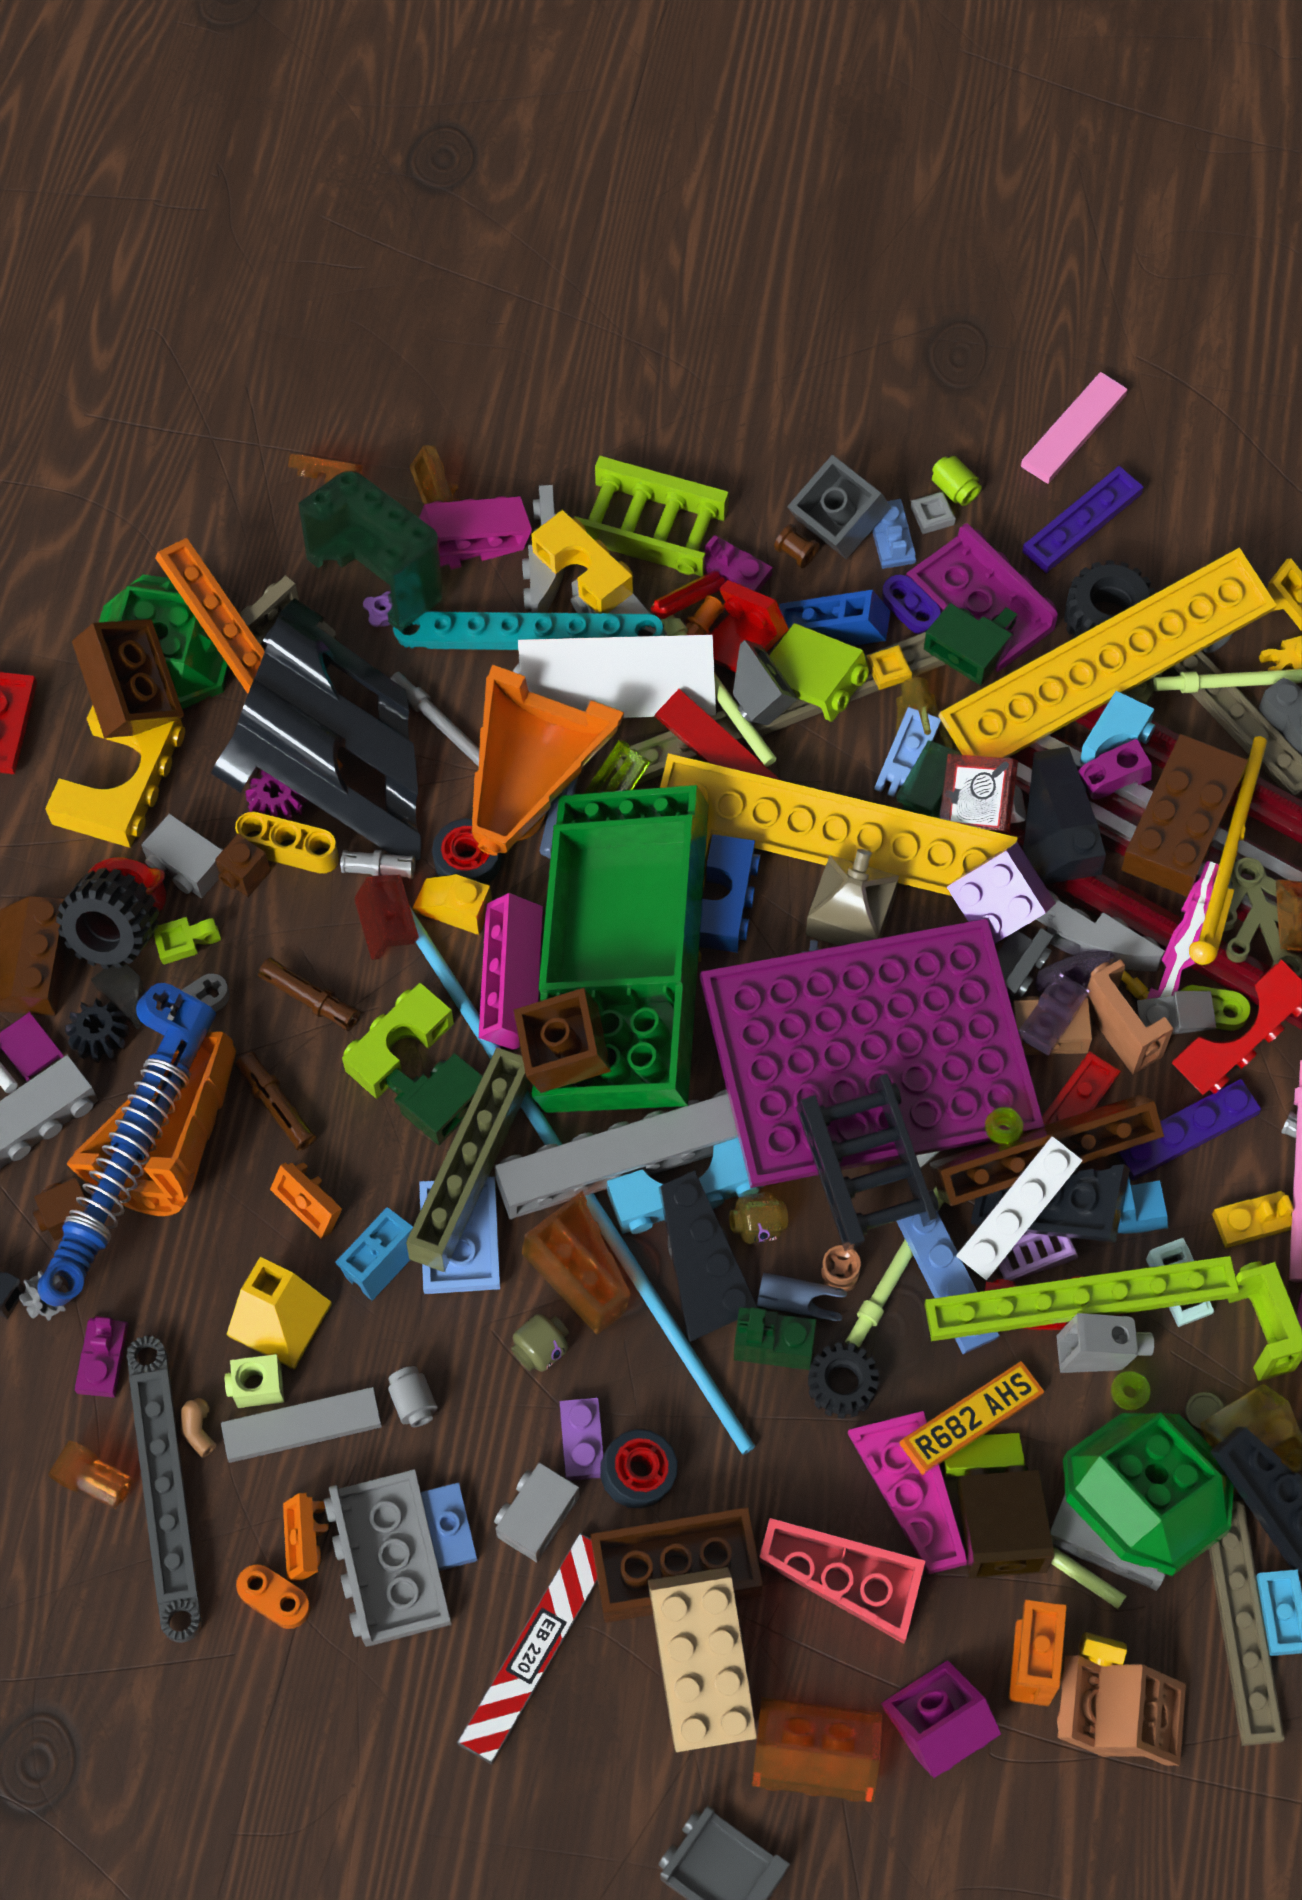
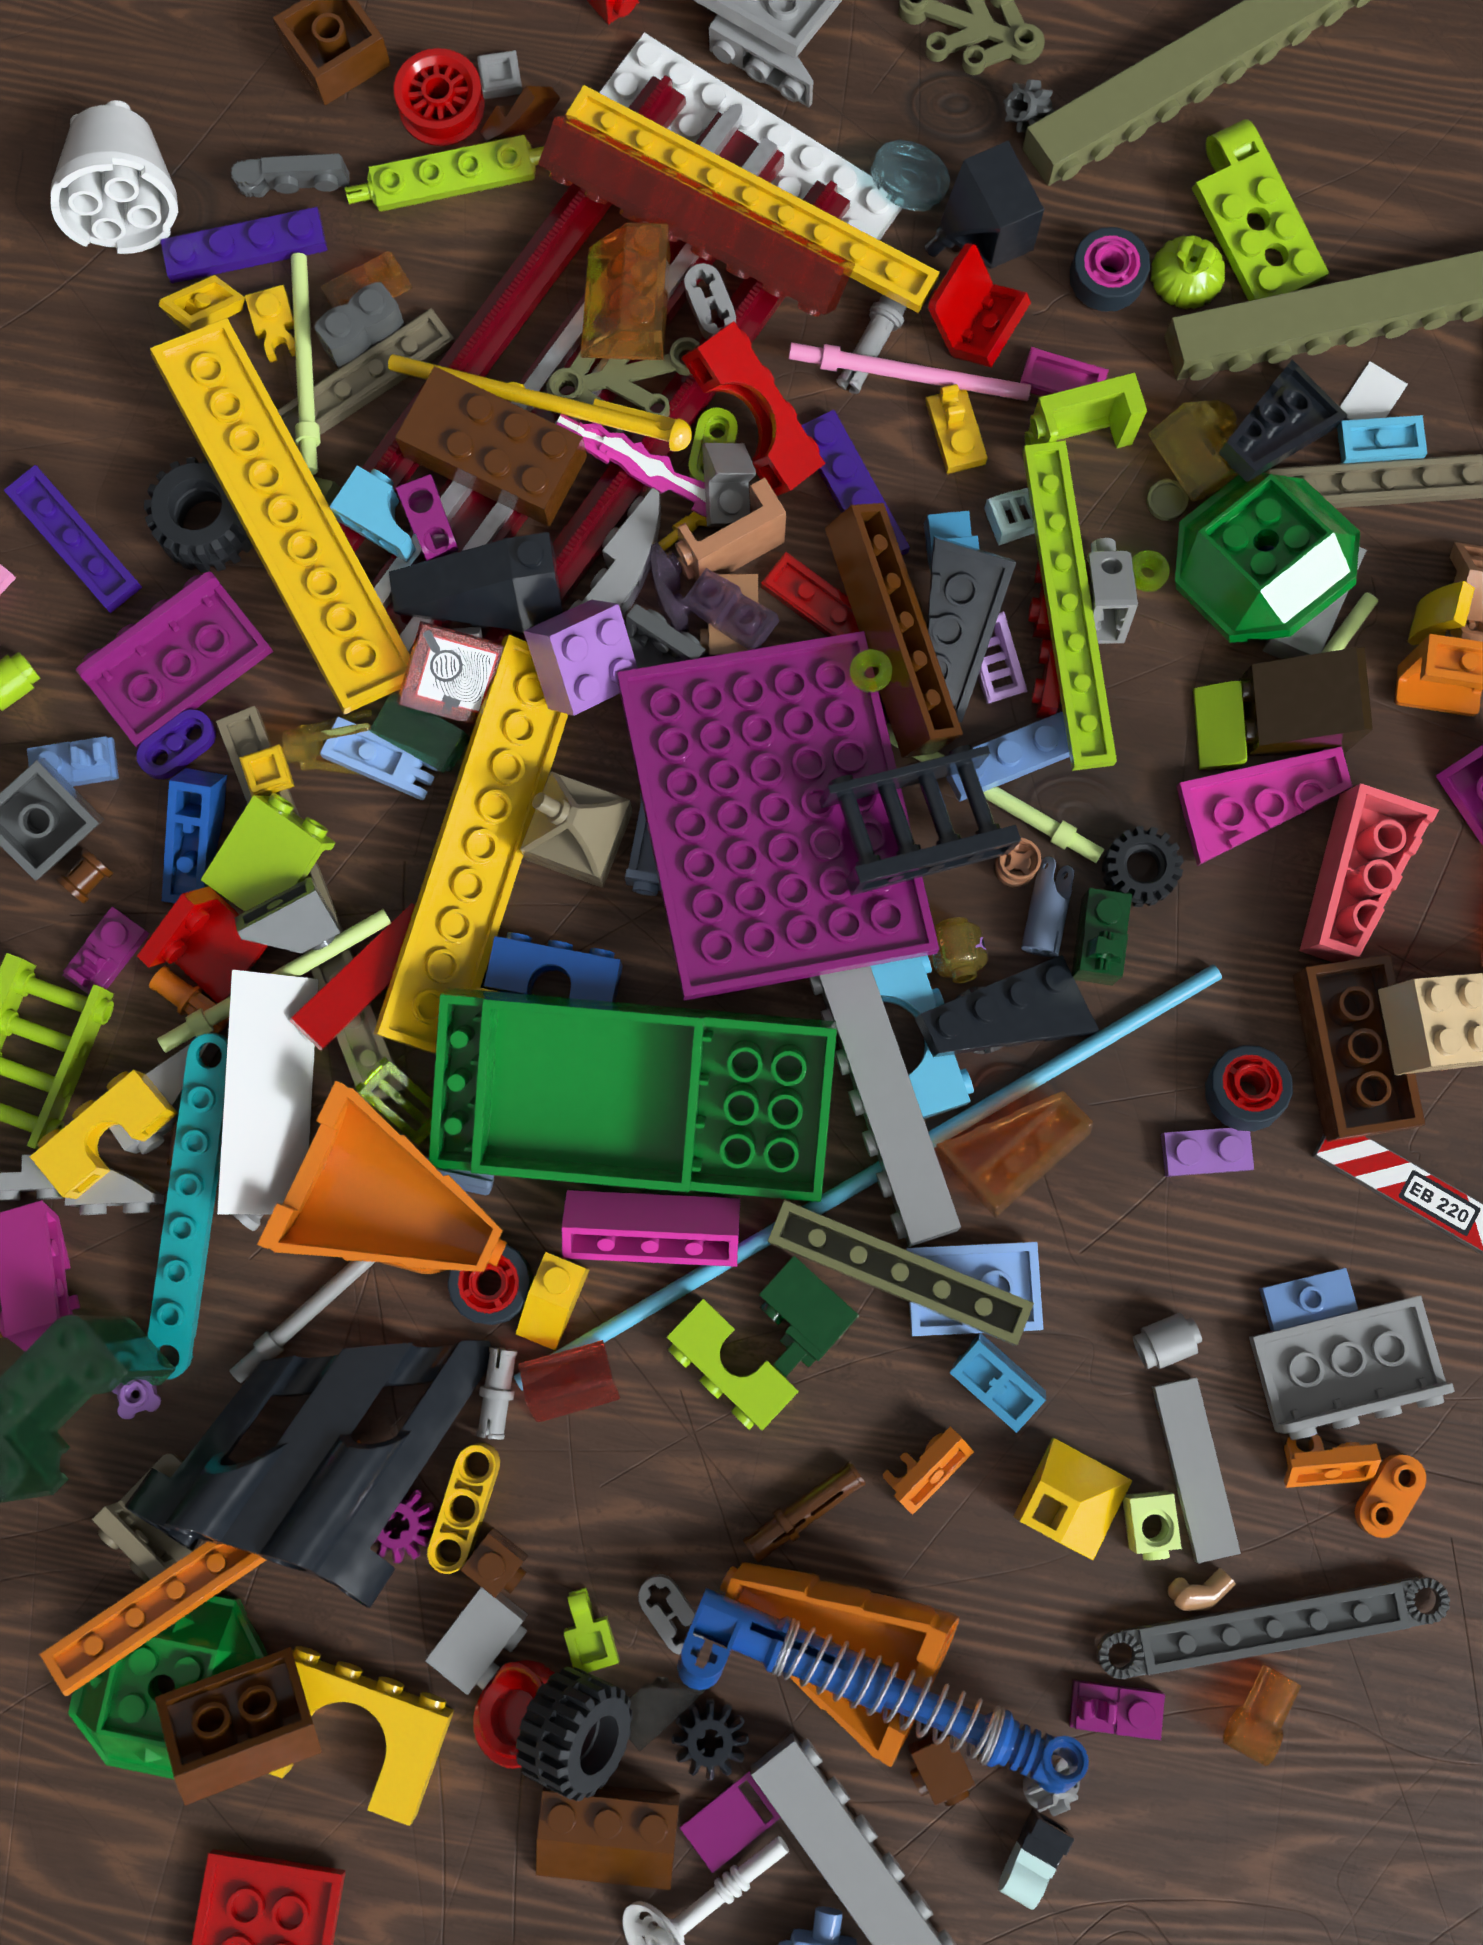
camera: 90 degrees left, 15 degrees up
(319, 1000) = (676, 1460): reddish brown pin -> none
(536, 1512) = (1296, 1201): light grey brick -> none
(540, 1342) = (1102, 1196): olive head -> none
(562, 1040) = (771, 1160): reddish brown brick -> none
(687, 595) = (151, 1007): red axle -> none
(932, 512) = (46, 713): light grey tile -> none
(968, 643) = (245, 675): dark green hinge -> none
(971, 1418) = (1187, 732): tile -> none
(1019, 1207) = (966, 660): white plate -> none

